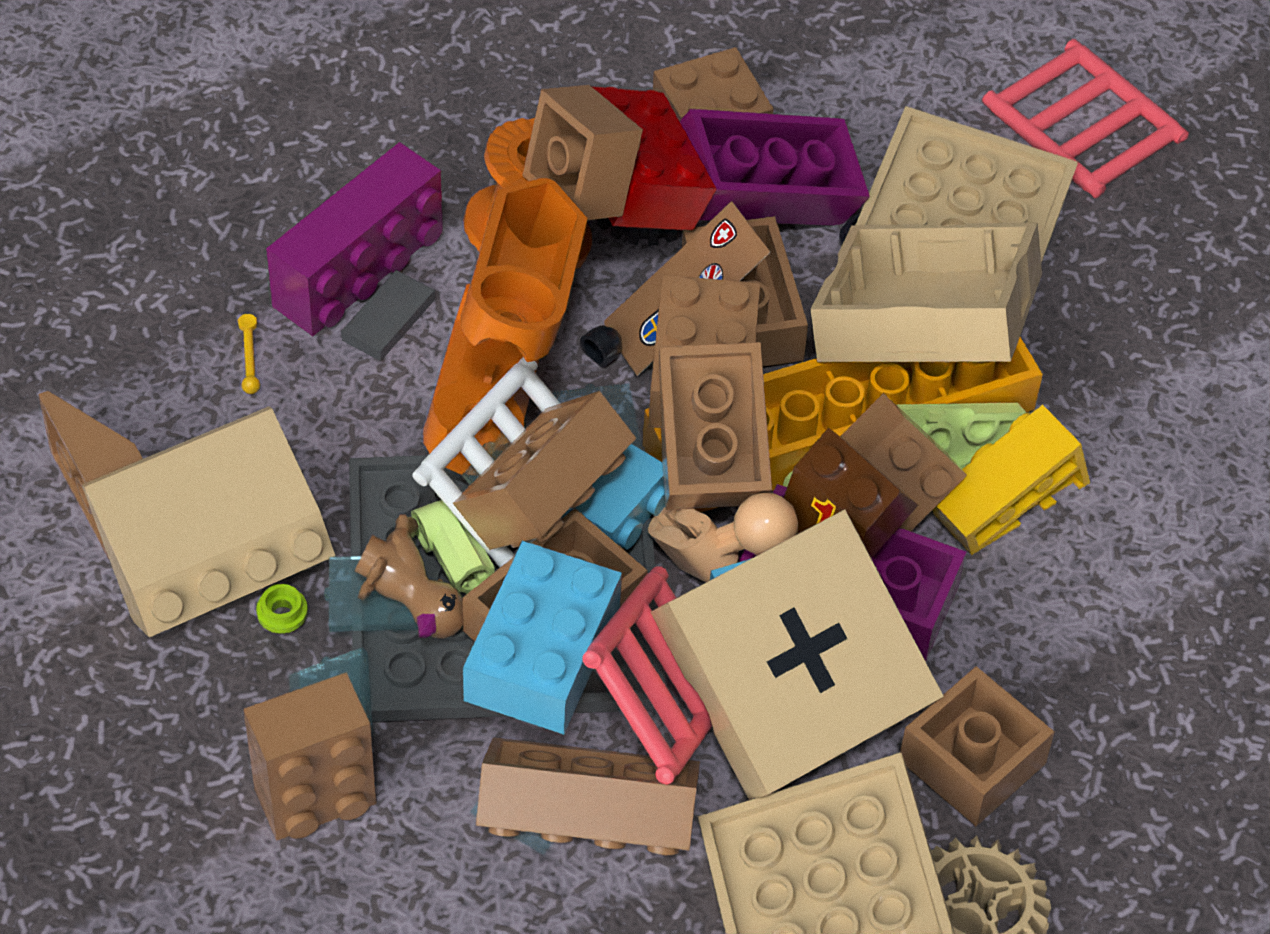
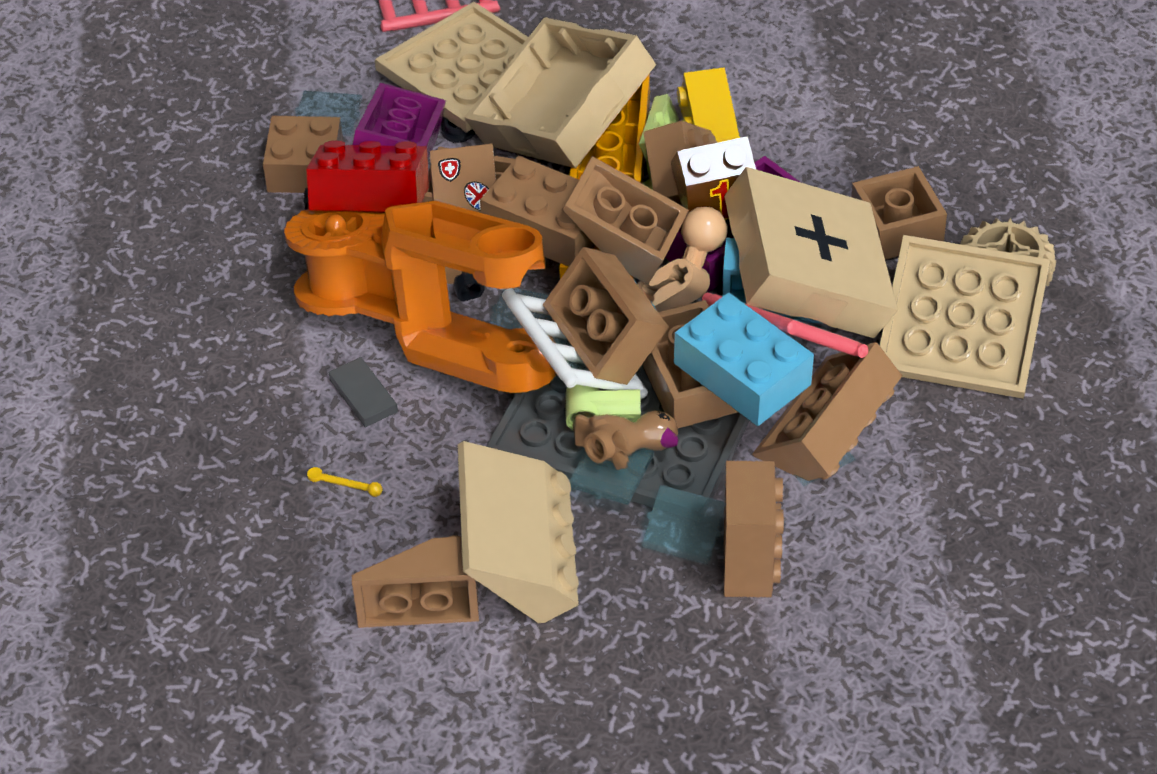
camera: 60 degrees left, 5 degrees down
(281, 596) = (588, 521): lime plate -> none
(355, 239) = (303, 373): magenta brick -> none
(584, 149) = (371, 180): medium nougat brick -> none
(811, 96) = (331, 105): none -> clear light blue piece

